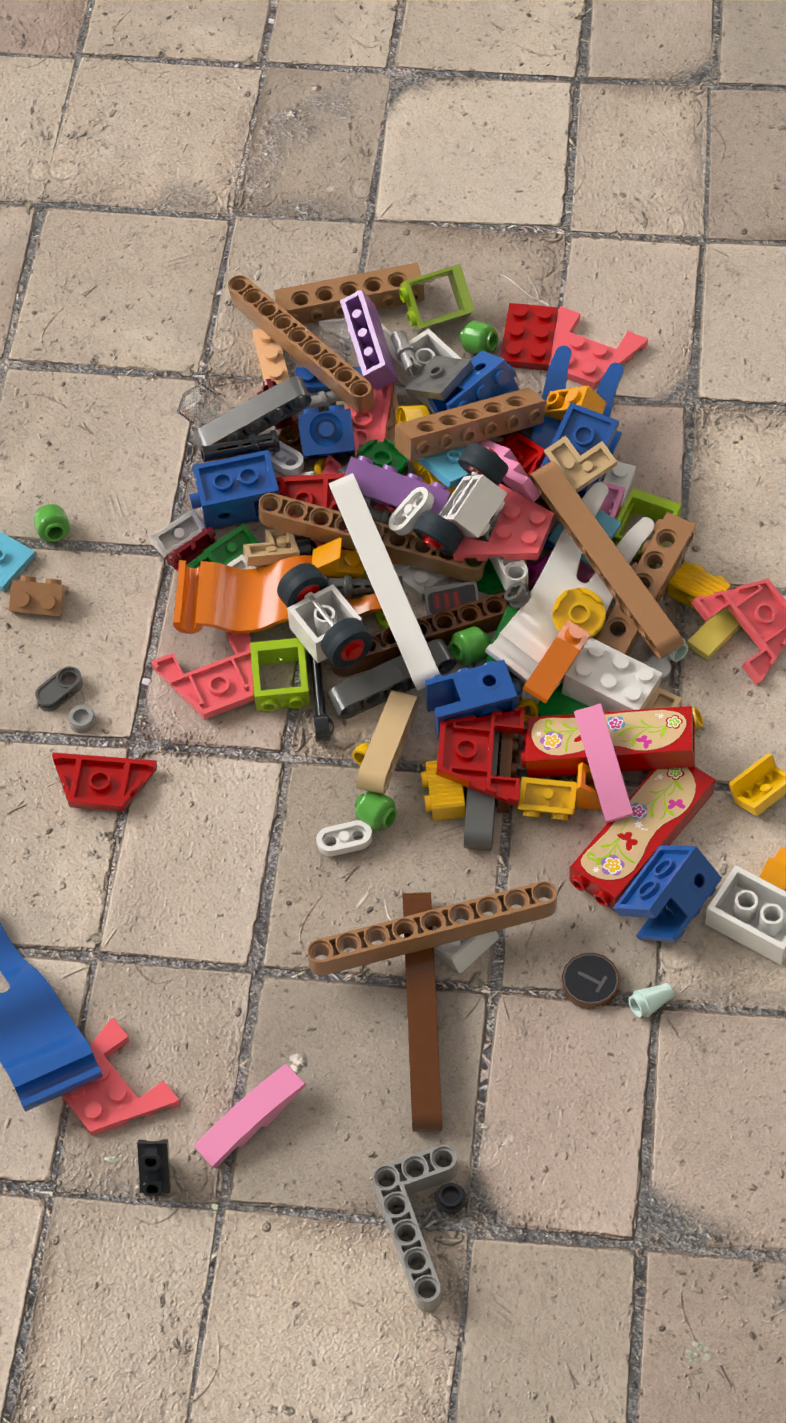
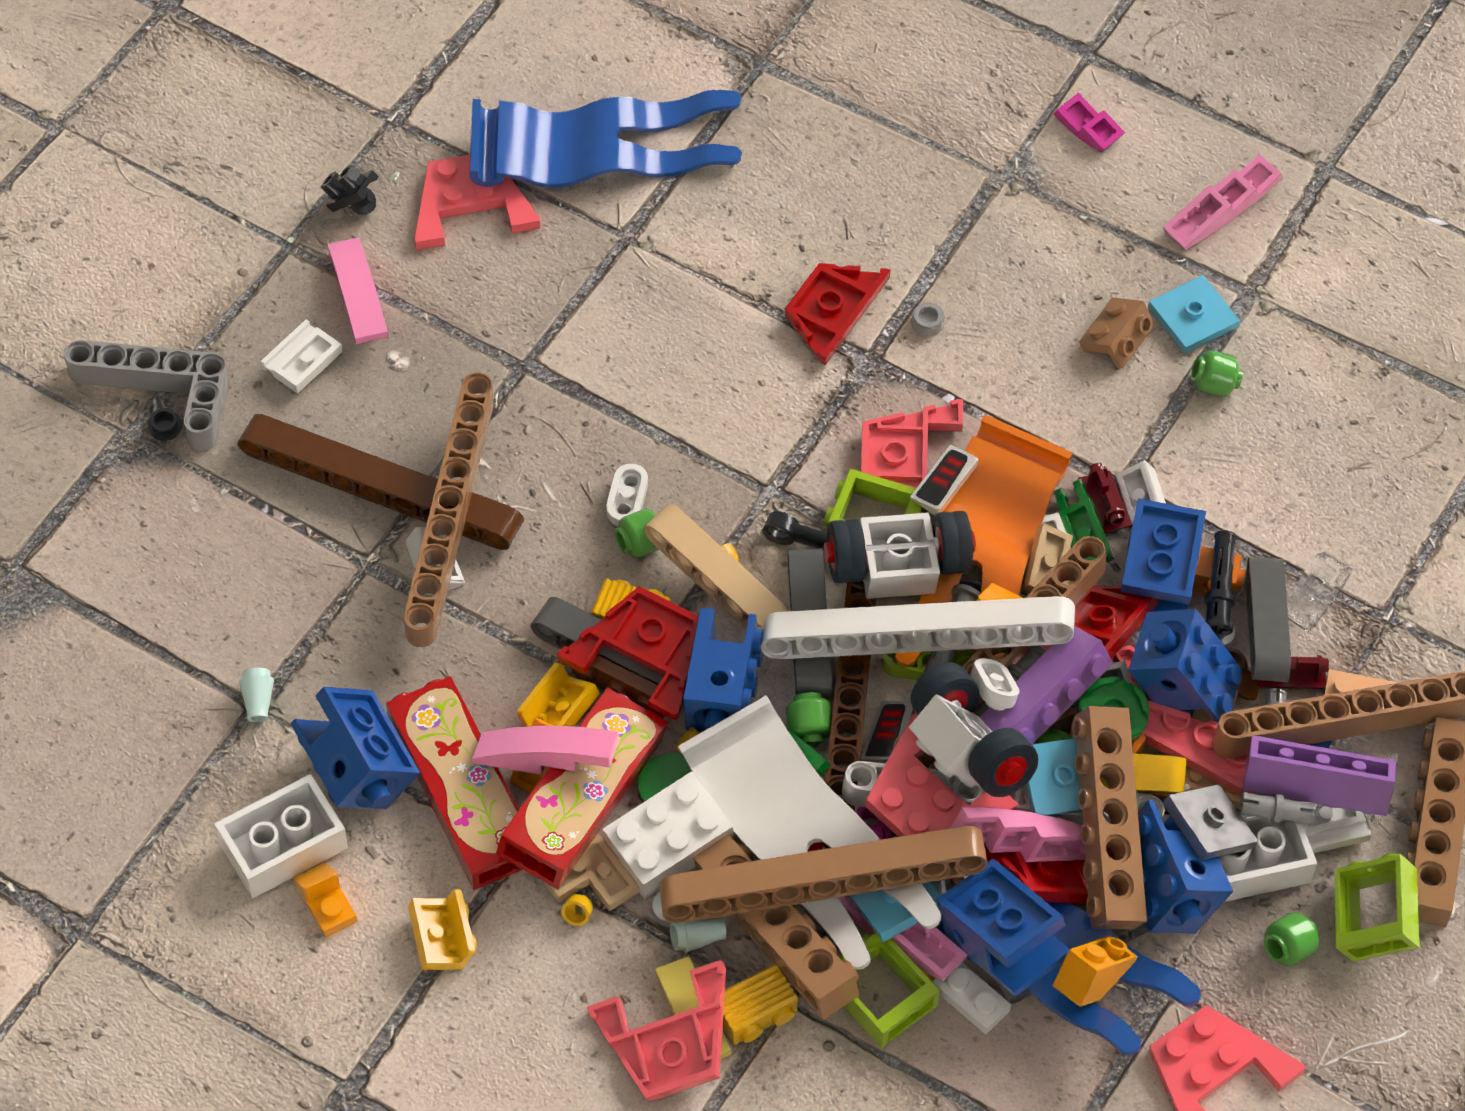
camera: 110 degrees right, 0 degrees up
(54, 693) = (976, 304): dark grey piece -> none
(241, 625) = (944, 479): none -> slope
(333, 1127) = (301, 356): none -> white plate
(517, 595) = (828, 767): dark grey bush -> none
(529, 336) = (1275, 1007): red plate -> none
(556, 661) = (705, 757): orange slope -> none
(580, 607) = (767, 822): yellow tile -> none
(581, 469) = (964, 885): tan plate -> none
(590, 980) = (317, 652): black tile -> none

